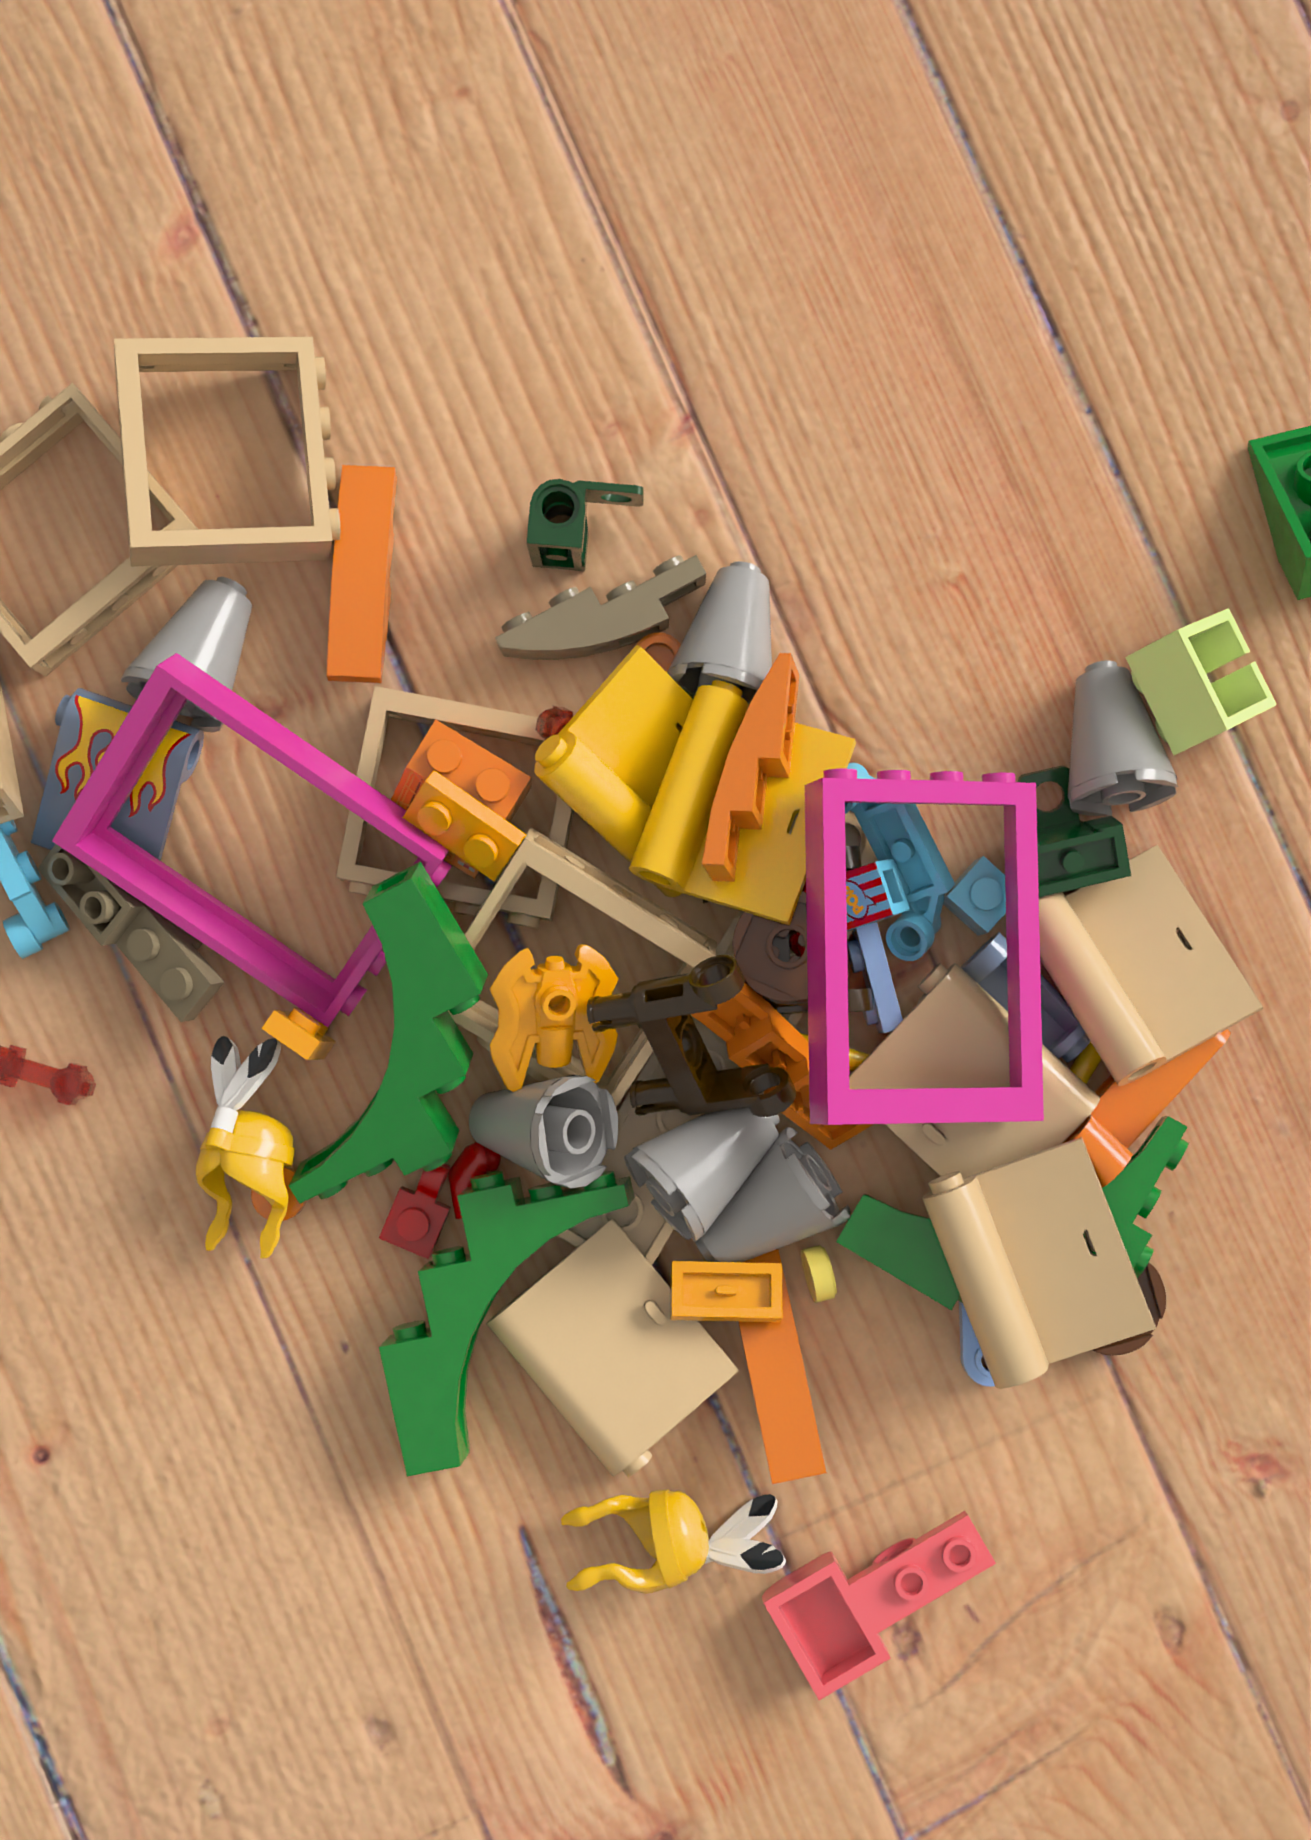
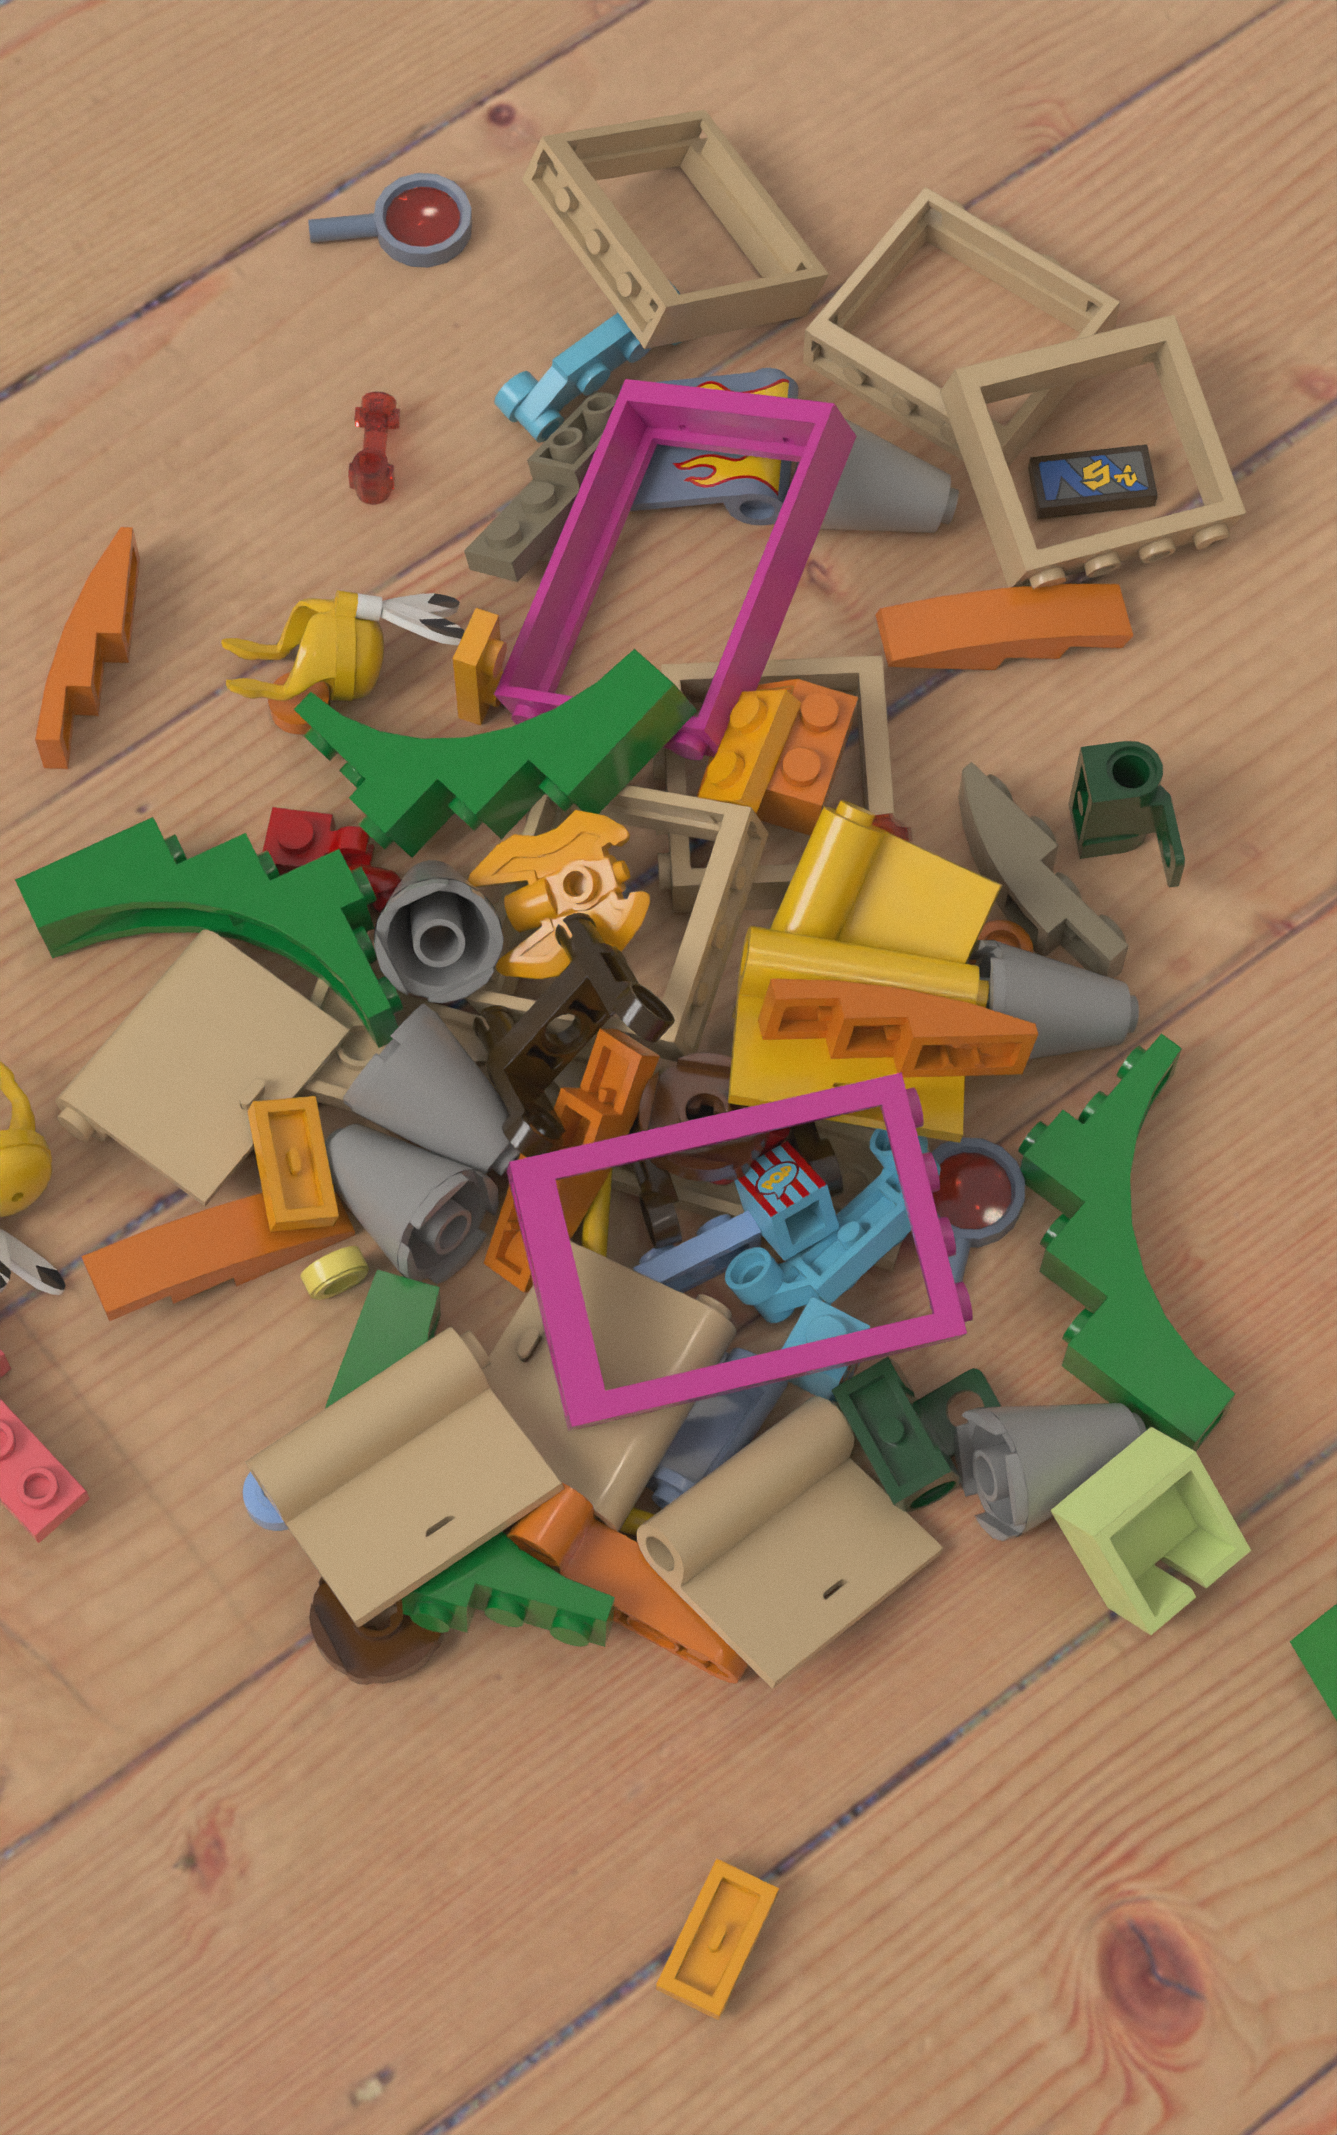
camera: 75 degrees right, 20 degrees down
(168, 1357) = (94, 634): none -> orange slope
(233, 458) = (1092, 481): none -> tile
(877, 641) = (1091, 1252): none -> green arch
(879, 737) = (978, 1194): none -> piece

